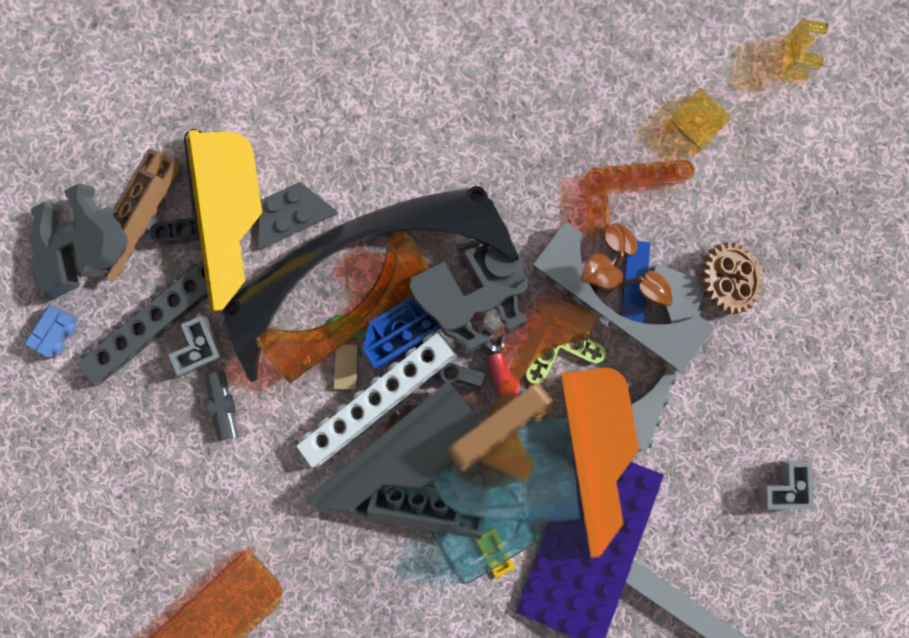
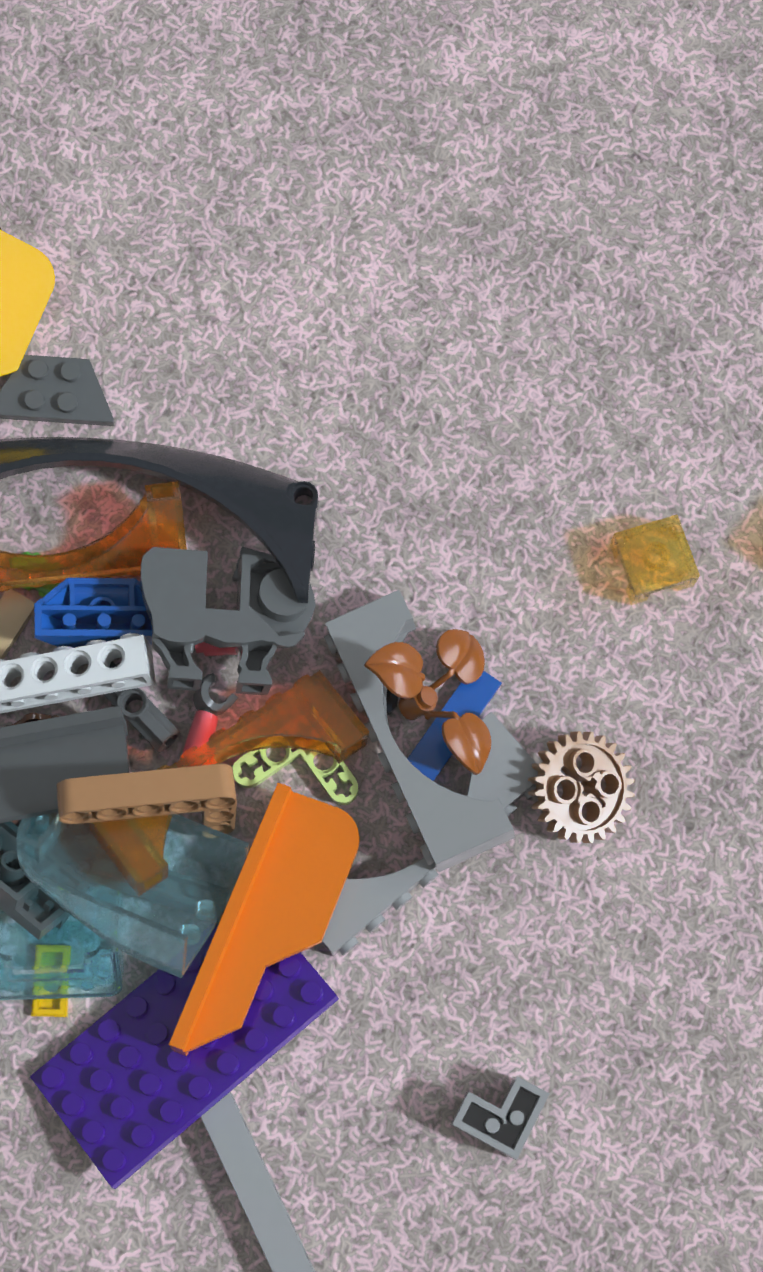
camera: 30 degrees right, 10 degrees down
(628, 180) = (515, 588): clear orange beam -> none

